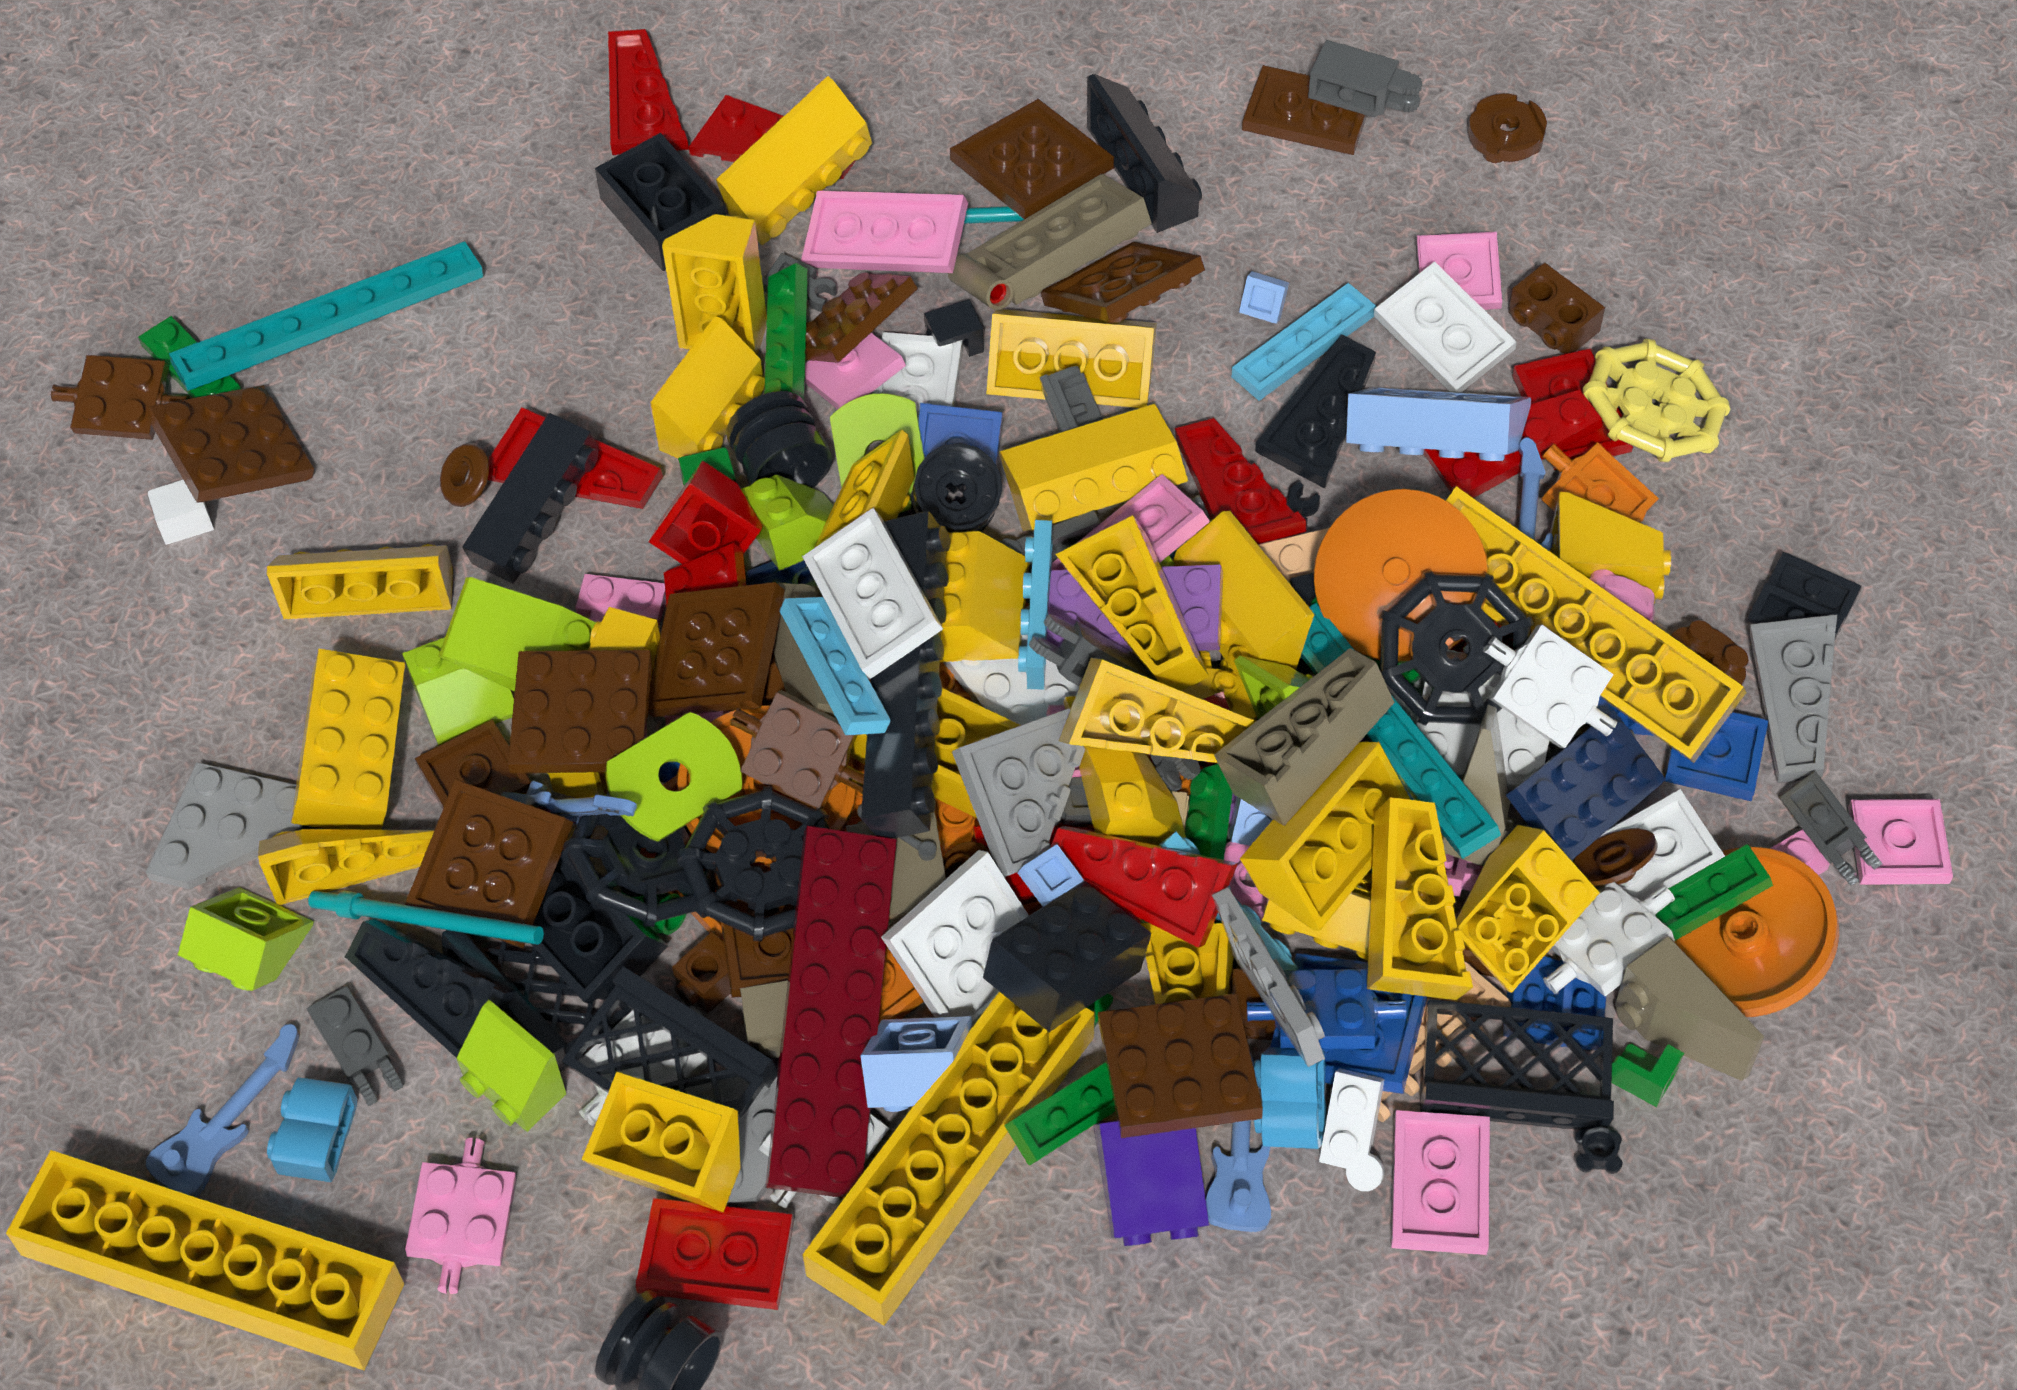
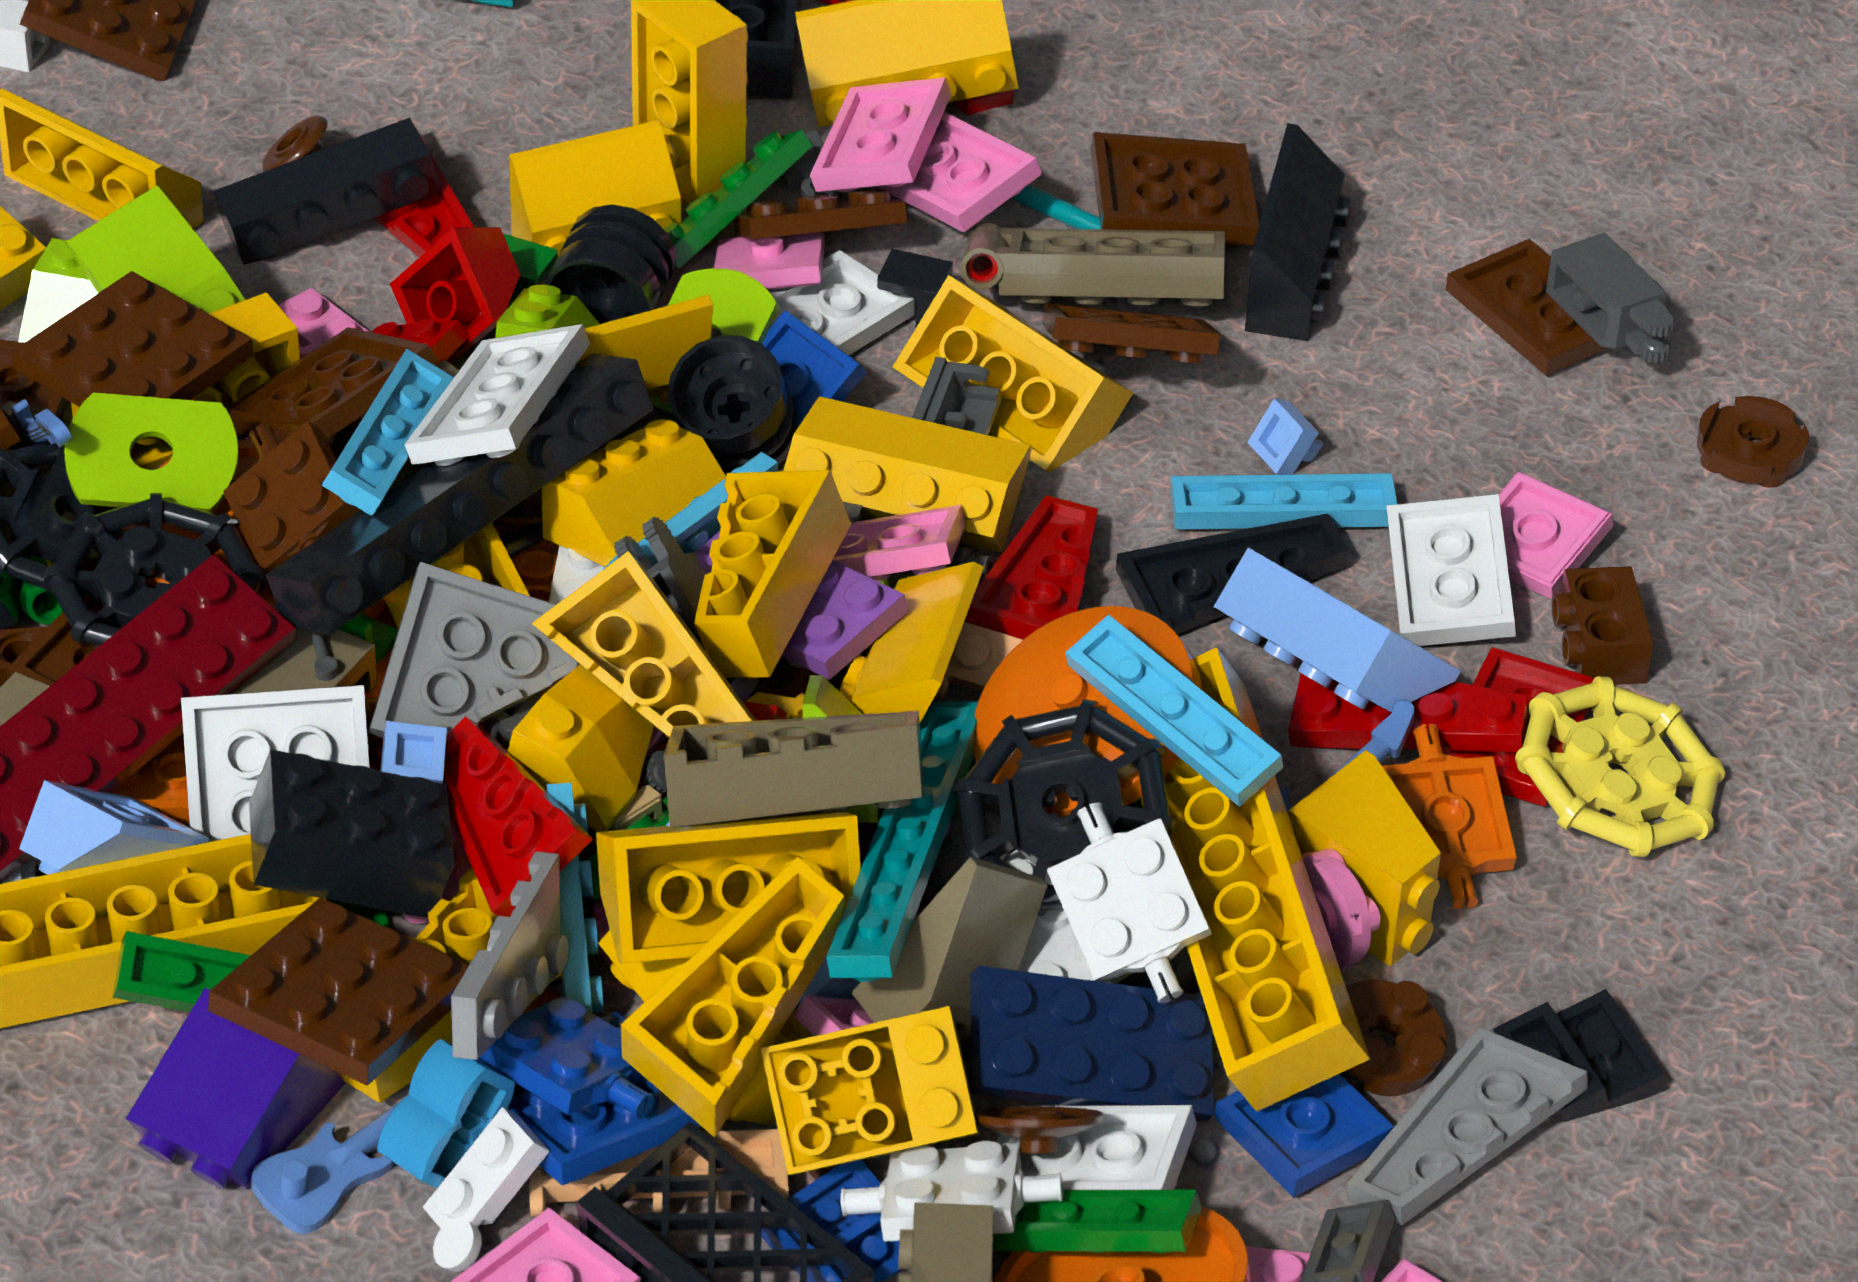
camera: 35 degrees right, 15 degrees down
(840, 234) = (880, 135): none -> bright pink plate
(1483, 547) = (1174, 710): none -> medium azure plate

